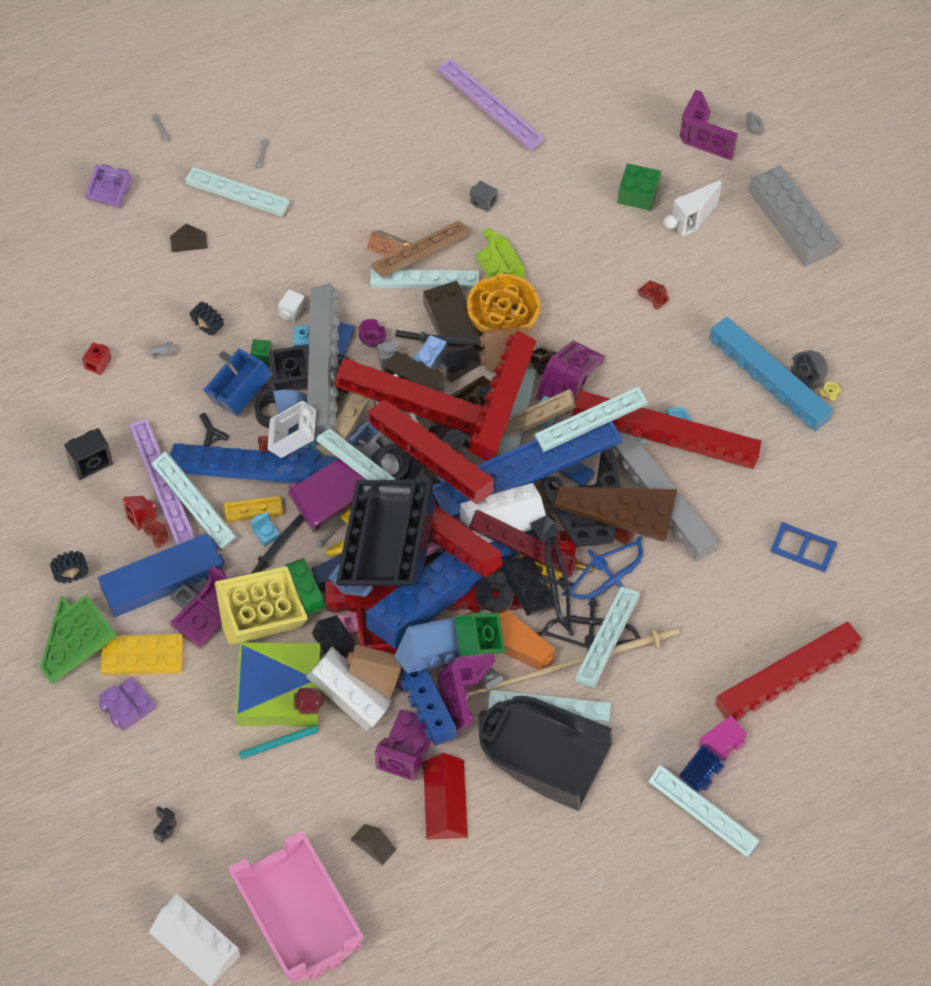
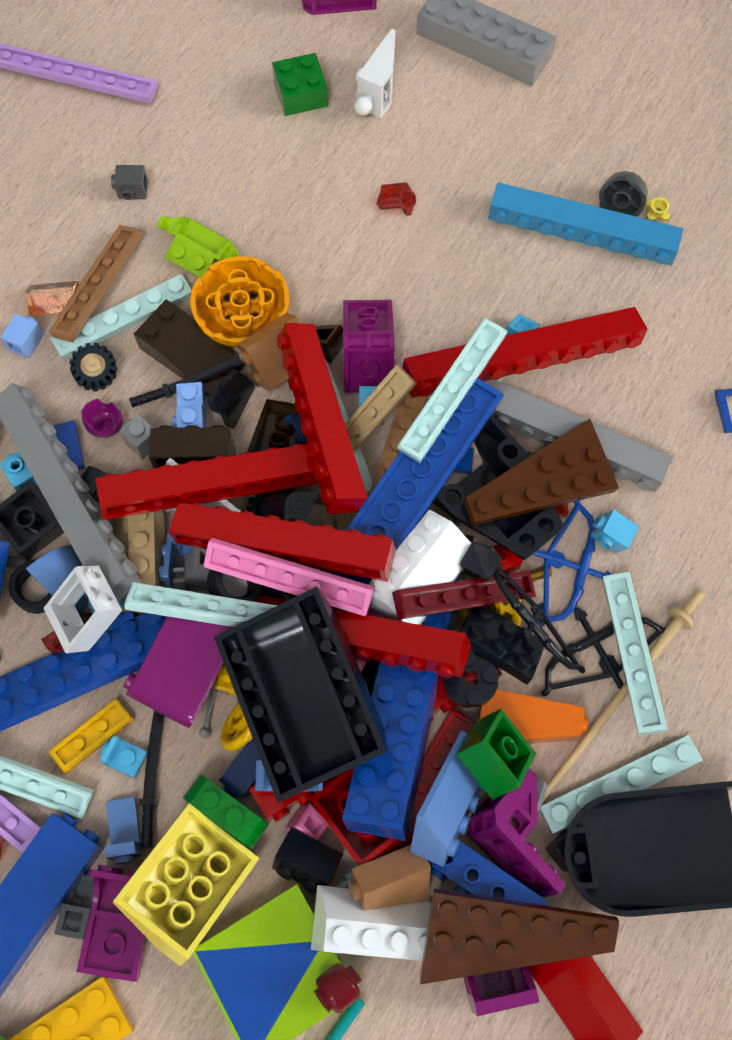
camera: 30 degrees left, 10 degrees up
(241, 564) = (123, 831): none -> medium blue bracket
(354, 258) = (22, 335): none -> light blue brick
(386, 299) = (93, 367): none -> black wheel
(410, 721) = (492, 934): none -> reddish brown wing
(420, 469) = (287, 575): none -> bright pink plate
(647, 565) = (614, 531): none -> medium azure brick

